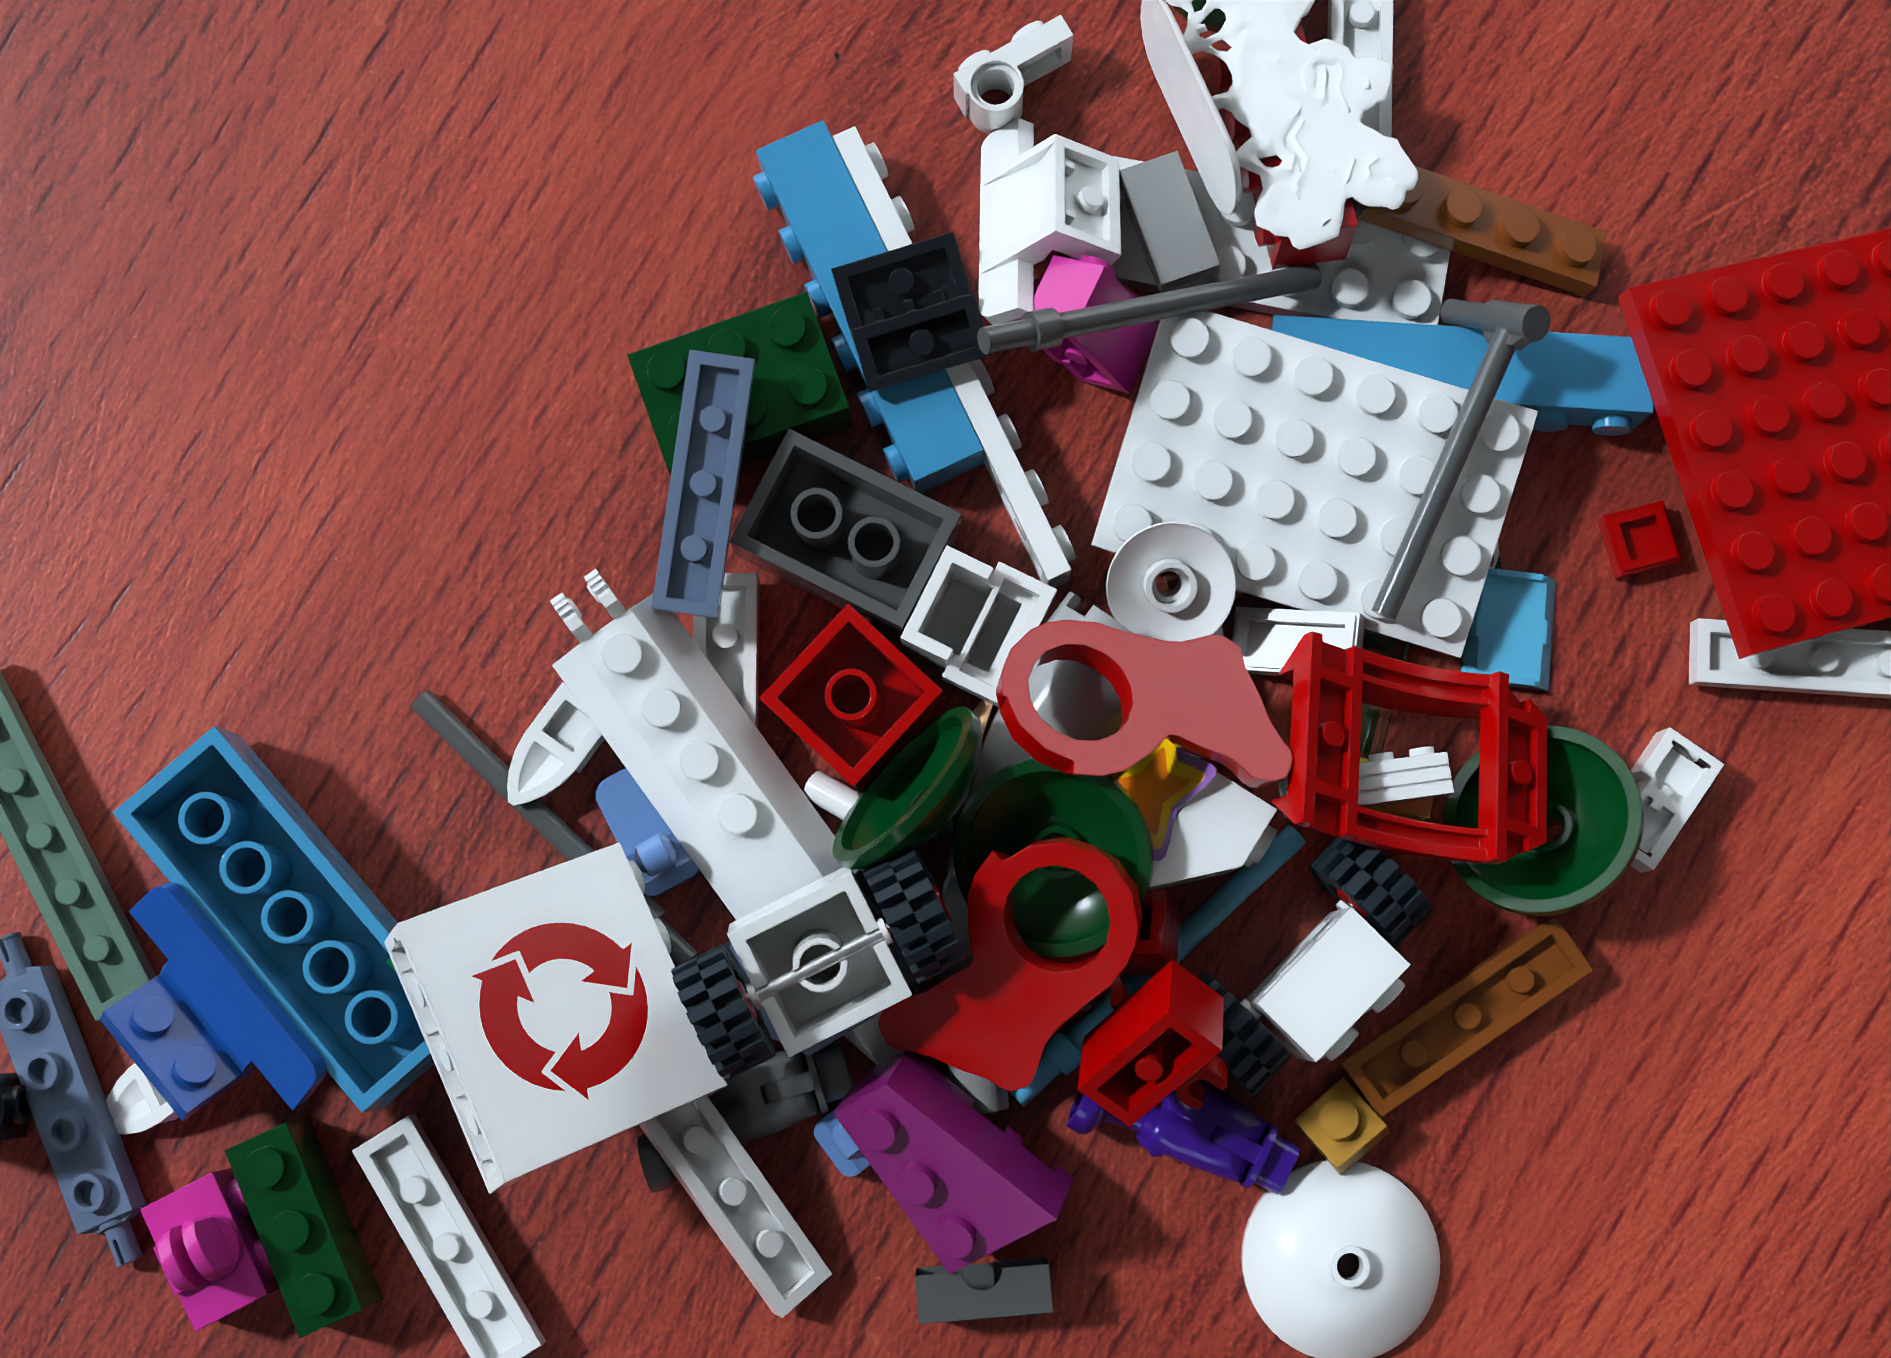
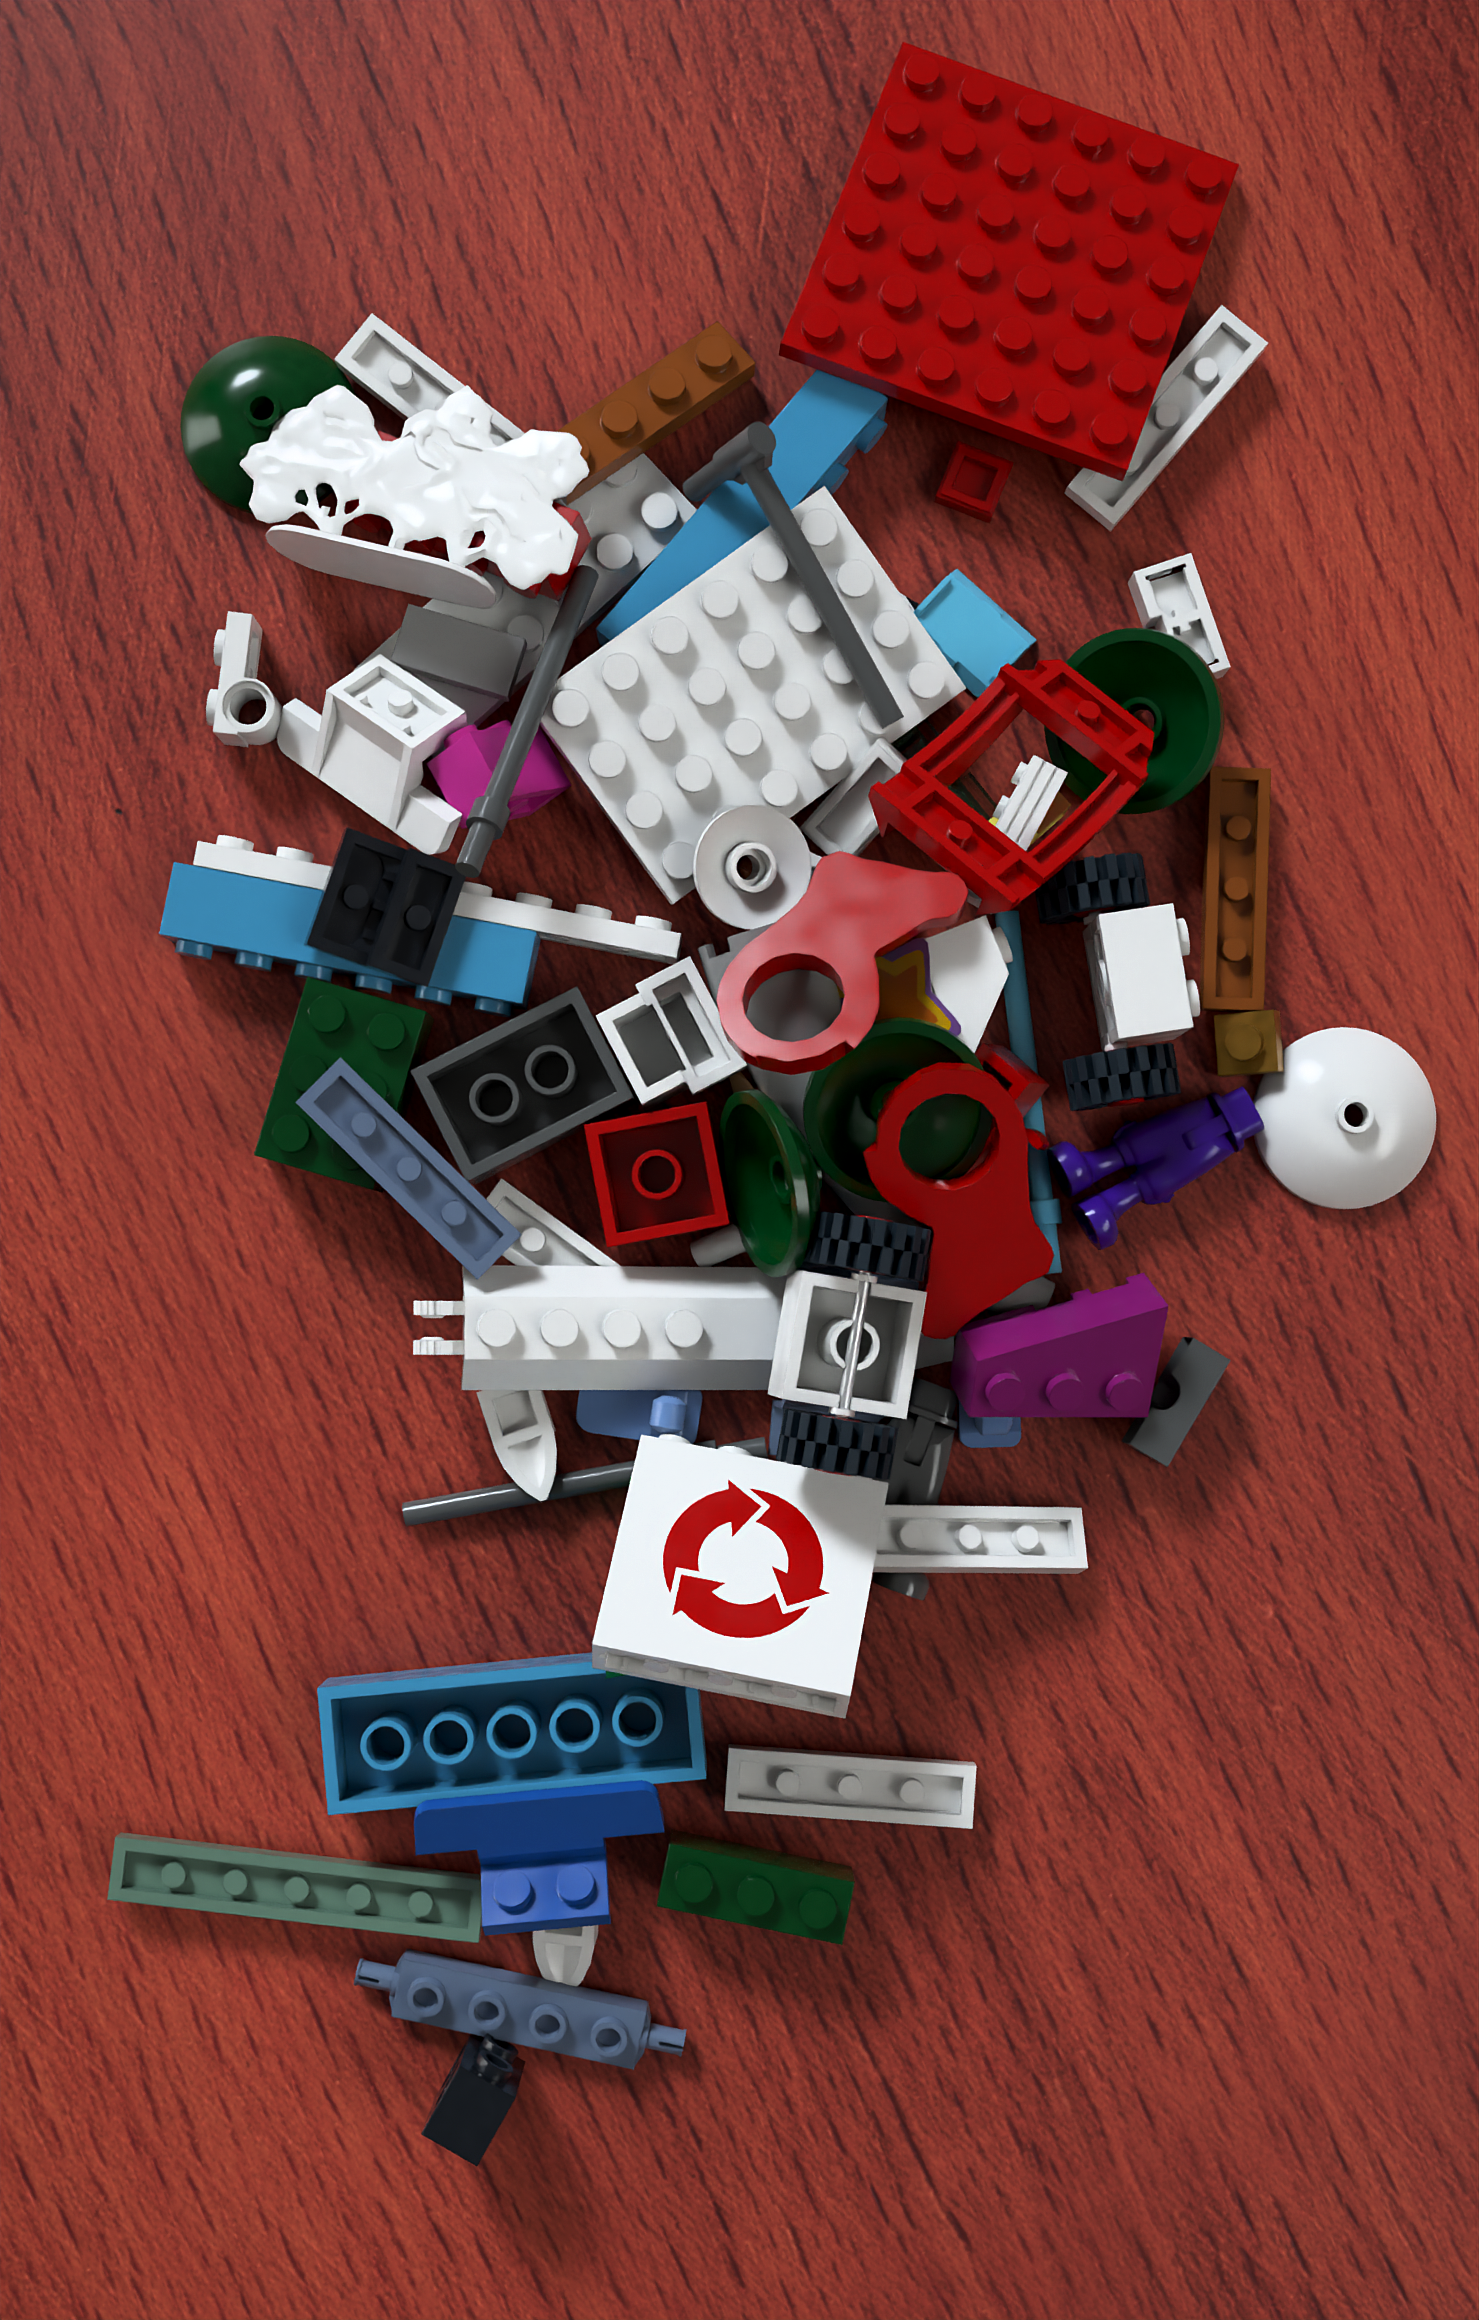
camera: 60 degrees left, 5 degrees up
(210, 1248) = (721, 1968): dark pink brick -> none
(1156, 1045) = (1096, 1138): red brick -> none

